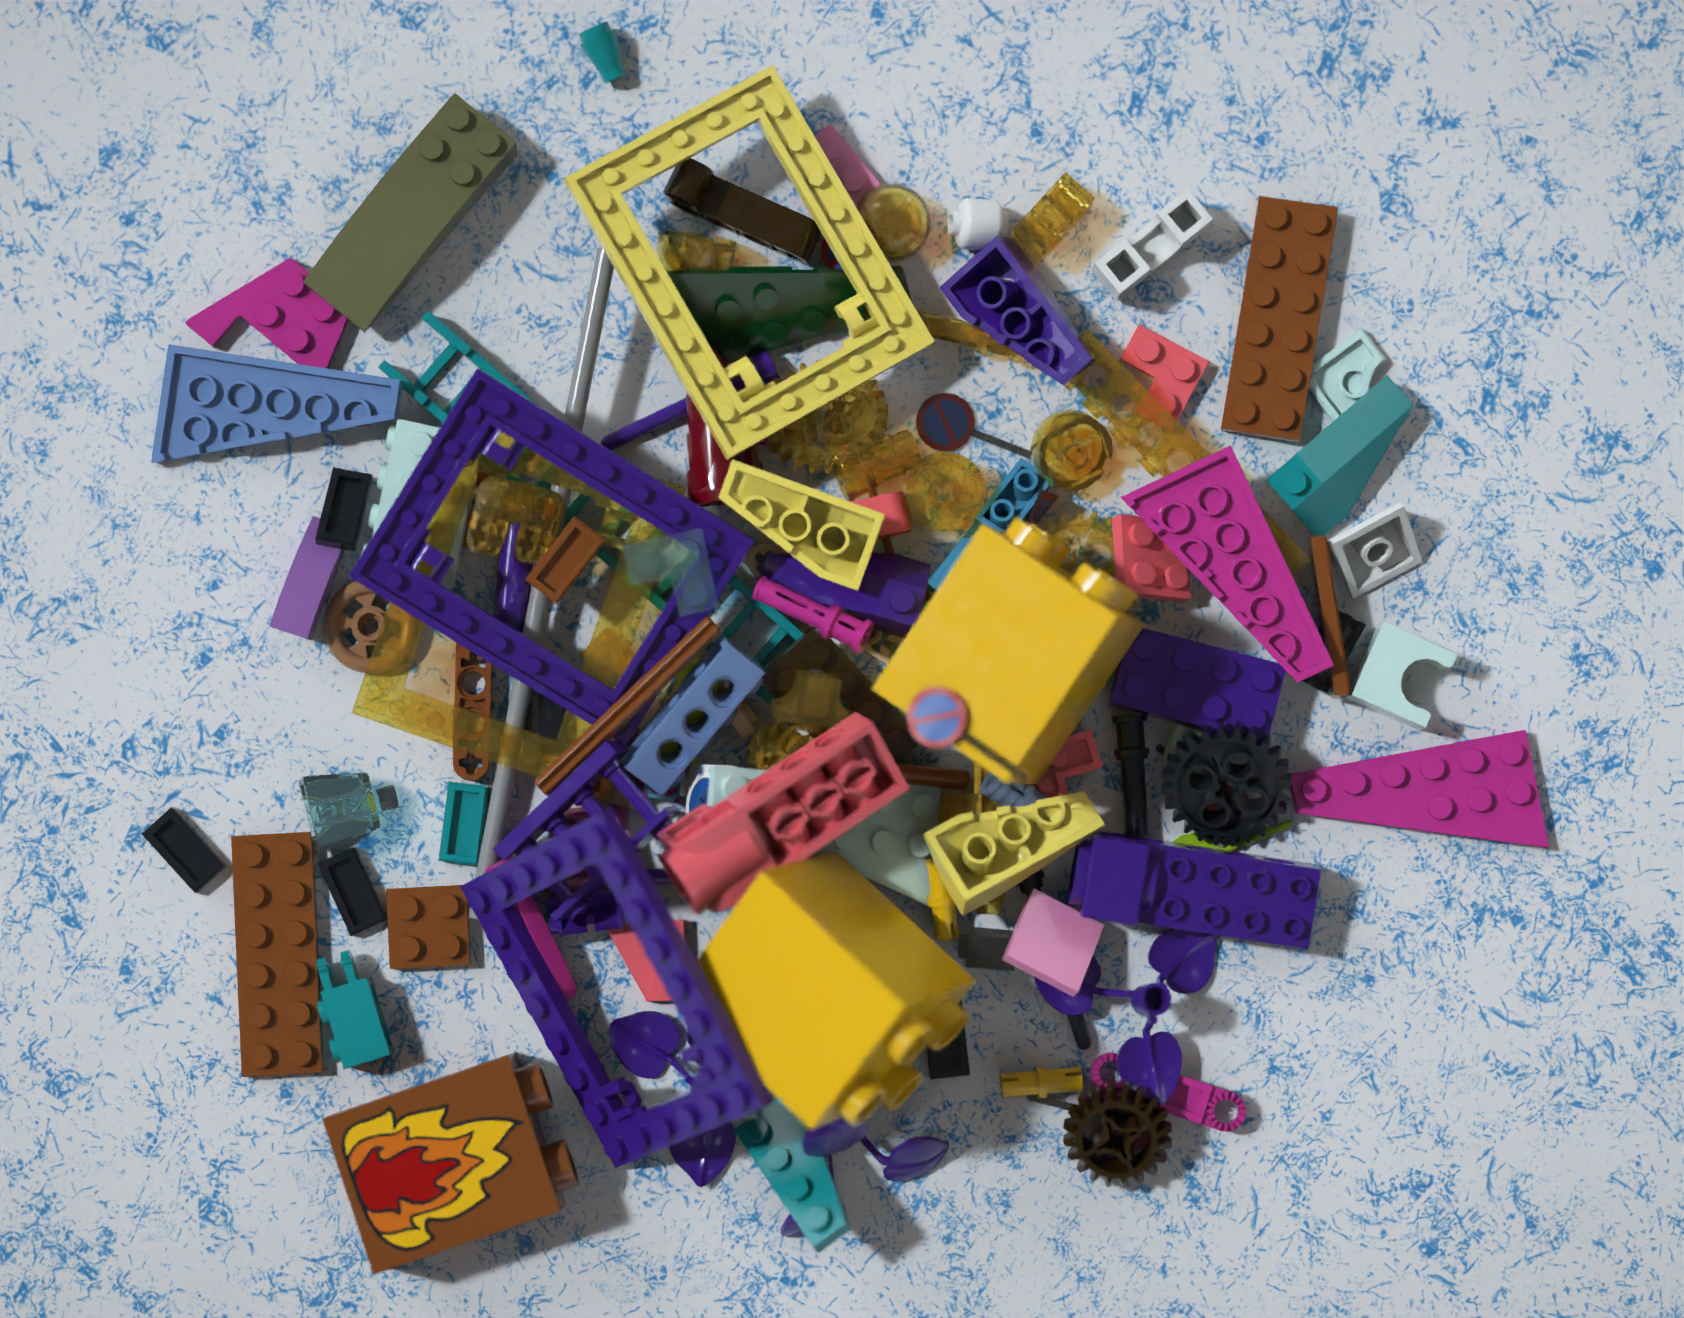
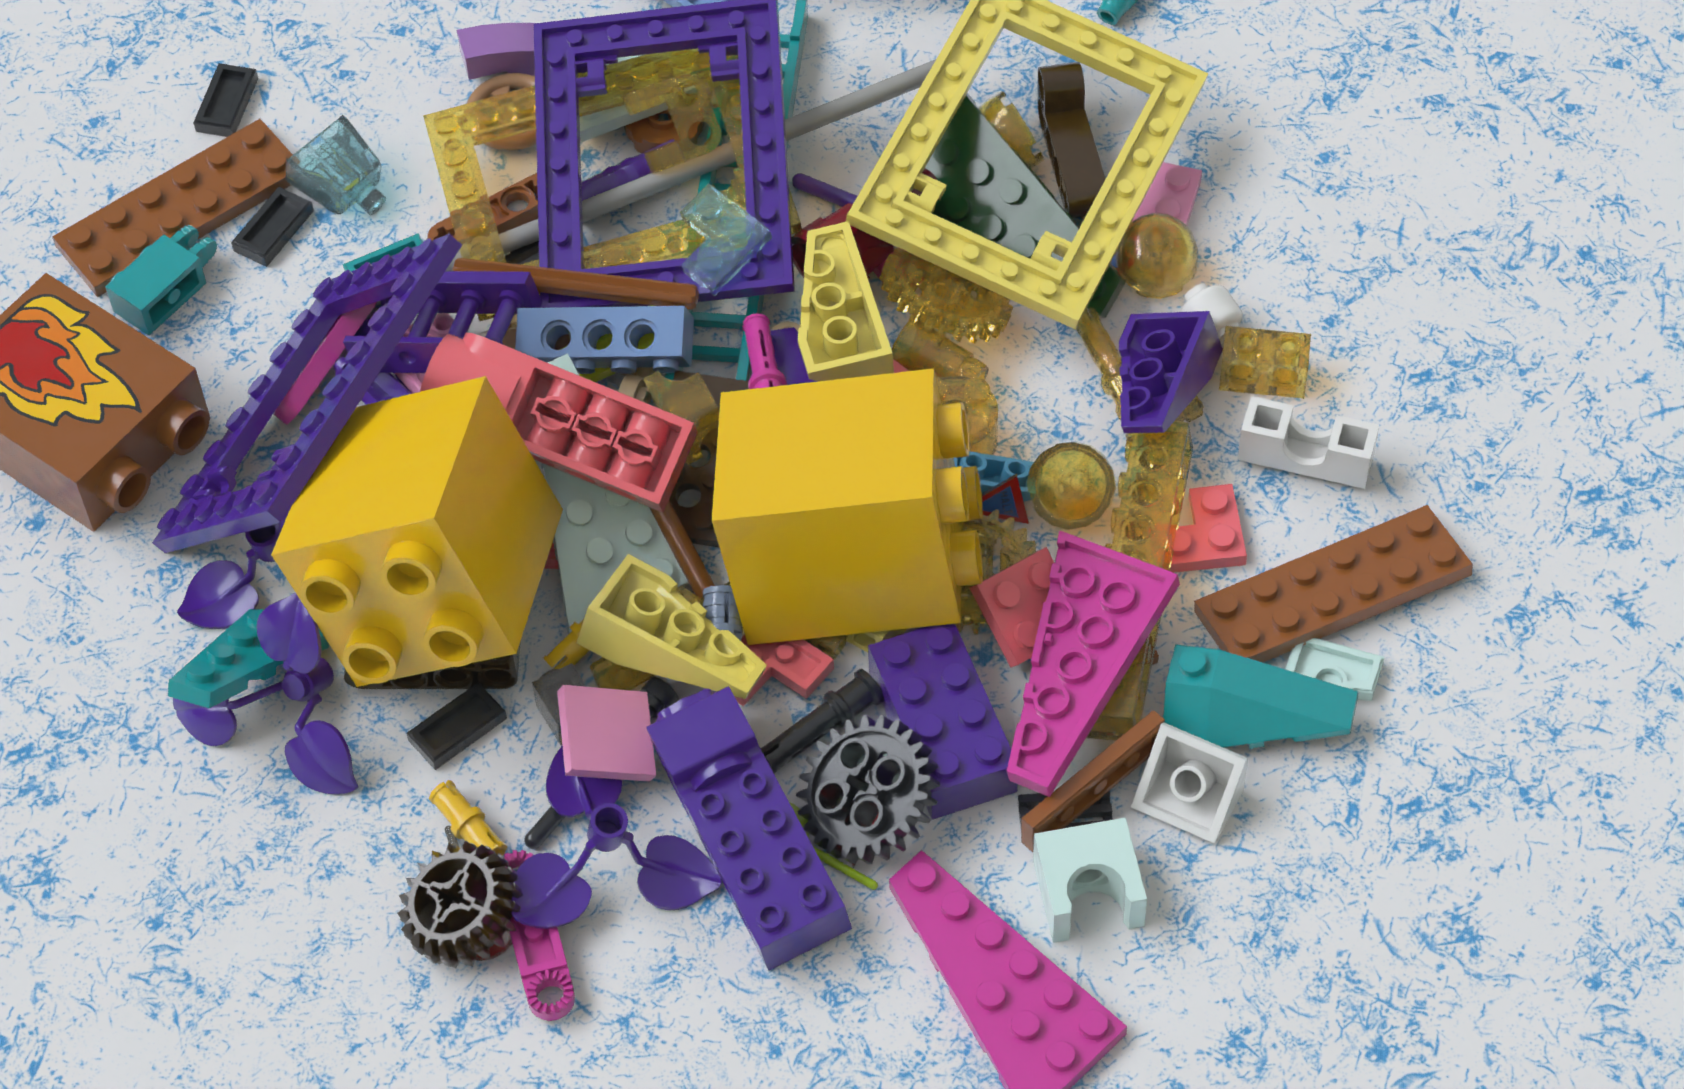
camera: 55 degrees right, 30 degrees down
(428, 927) = (274, 291): dark orange plate -> none
(565, 560) = (667, 174): dark orange tile -> none
(940, 718) = (730, 445): piece -> none
(948, 422) = (1023, 405): clear smoke piece -> none

